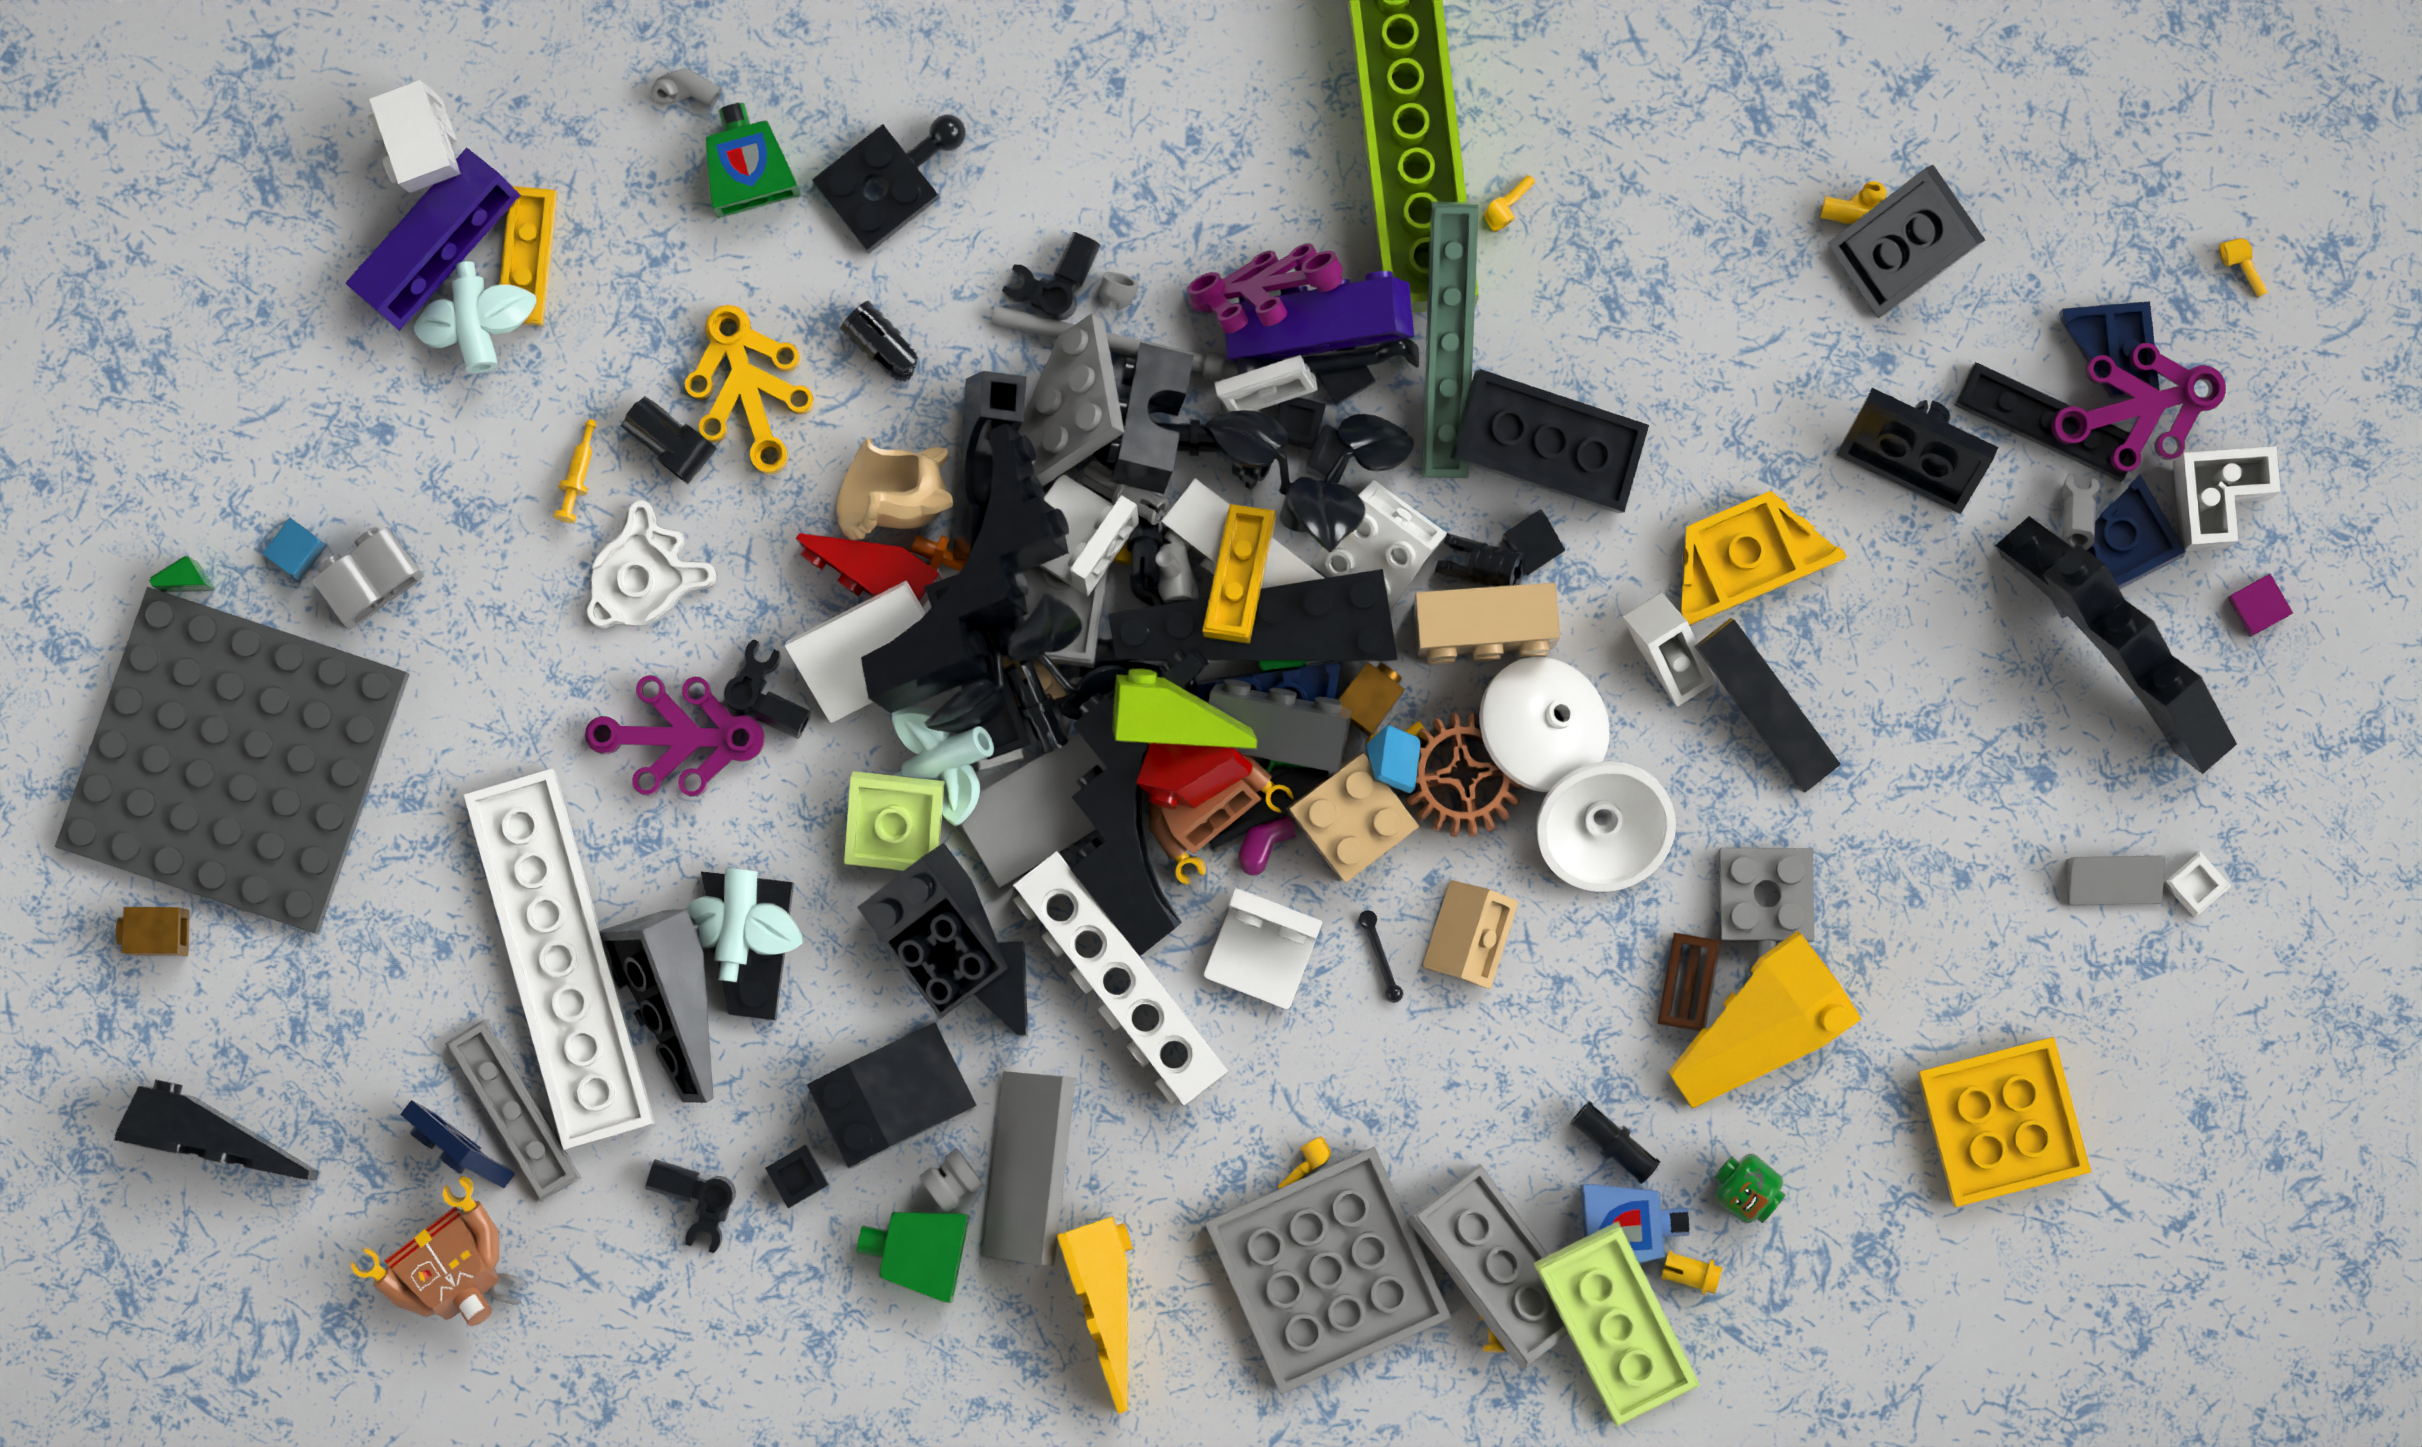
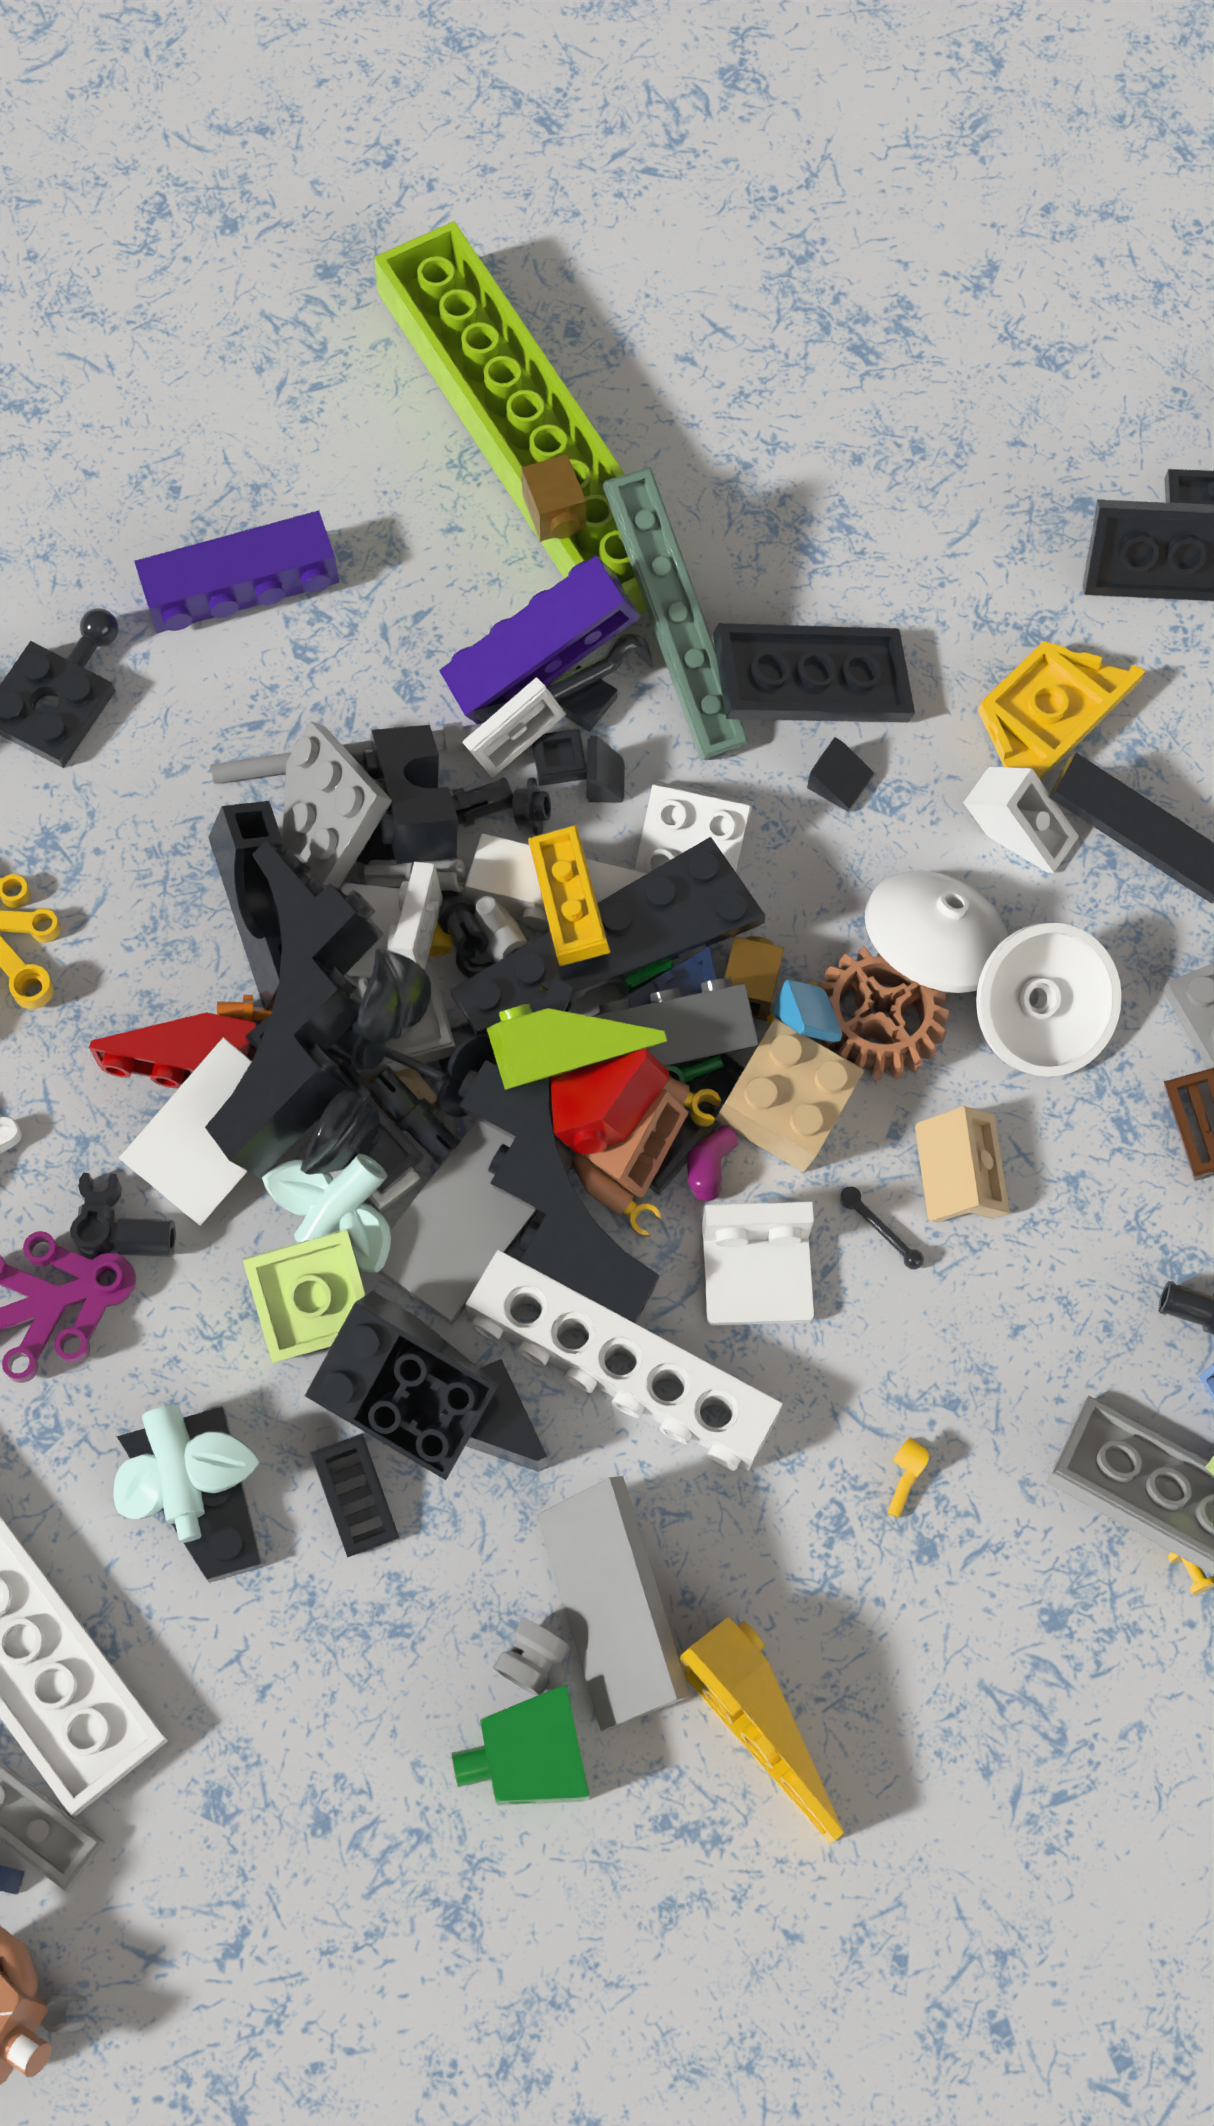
camera: 30 degrees left, 15 degrees down
(666, 975) = (120, 1569): wedge -> none
(684, 1184) = (227, 1795): black bar -> none
(797, 1176) = (355, 1729): black plate -> none
(867, 953) = (371, 1538): none -> black slope
(880, 341) = (106, 836): black hinge -> none
(891, 490) = (174, 965): tan hair -> none
(891, 1095) = (423, 1593): black slope -> none
(1058, 297) = (270, 731): black bar -> none
(1088, 128) = (237, 572): none -> dark purple brick
(1118, 289) = (327, 702): light grey hinge -> none
(1211, 292) = (481, 630): magenta plant -> none
(1320, 508) = (598, 815): black plant -> none
(1327, 1270) = (985, 1580): light grey plate -> none
(1385, 193) = (554, 498): none -> pearl gold brick
(1486, 564) = (808, 810): black hinge -> none
(1486, 622) = (833, 853): tan brick -> none
(1498, 212) = (673, 506): yellow hand -> none
(1851, 210) = (994, 385): yellow arm -> none
(1906, 241) = (1057, 379): black plate -> none

